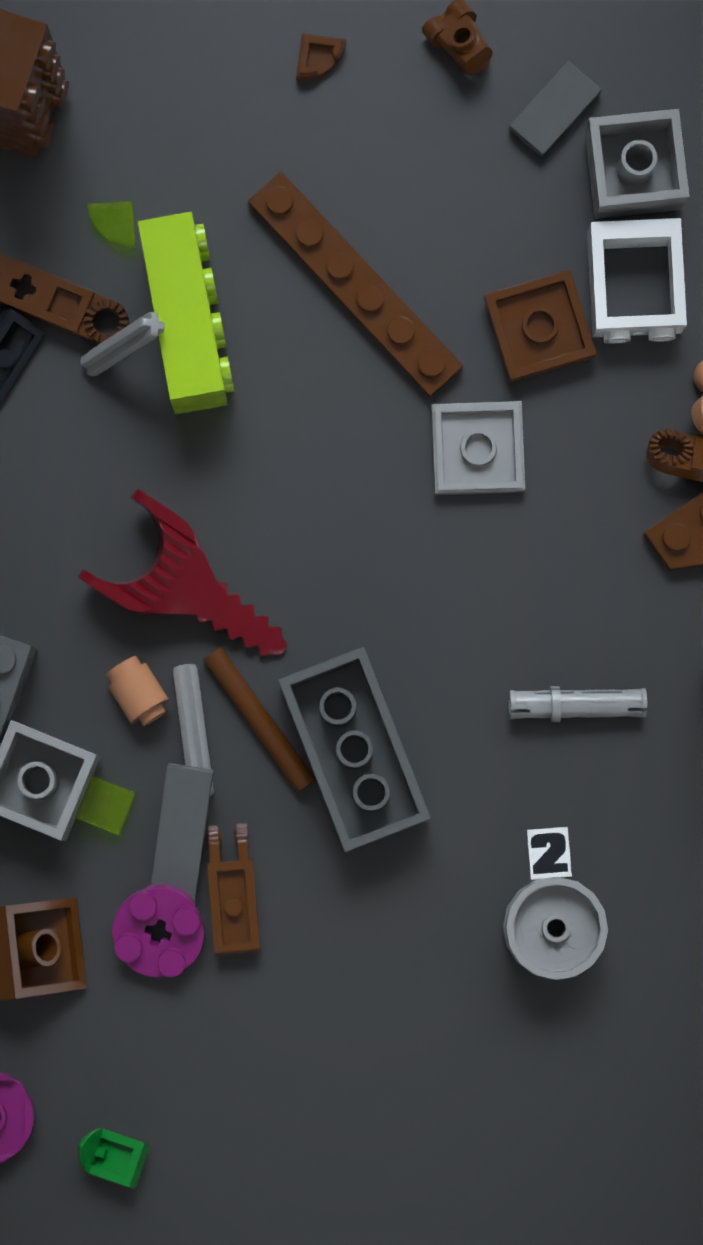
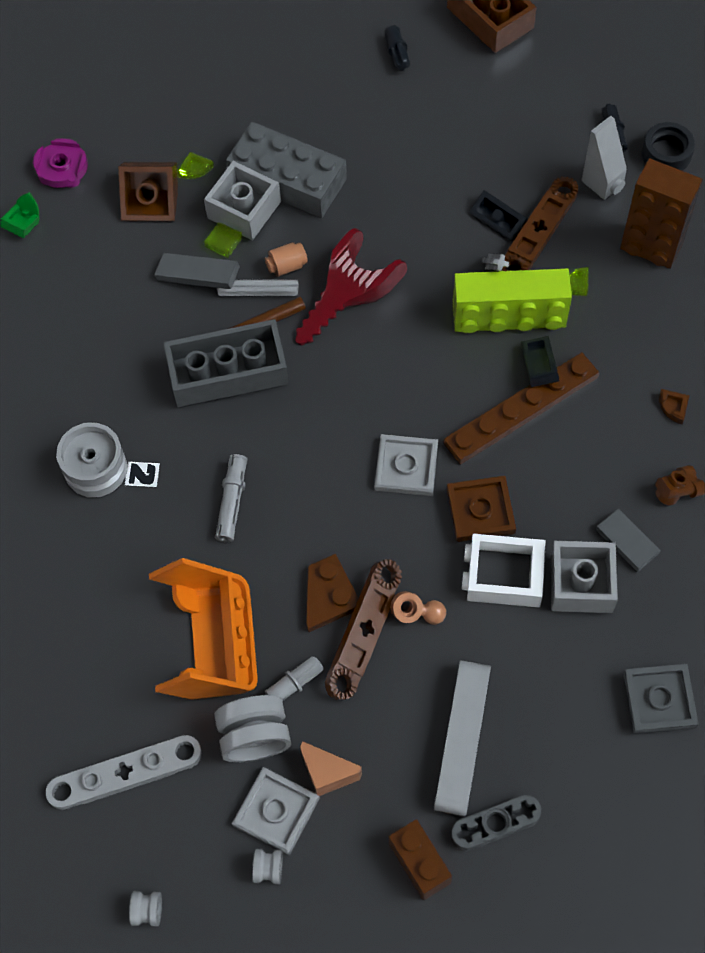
camera: 105 degrees right, 20 degrees down
(145, 908) = (138, 243): magenta plate -> none
(232, 896) = (158, 295): reddish brown hinge -> none
(277, 262) = (540, 361): none -> black tile

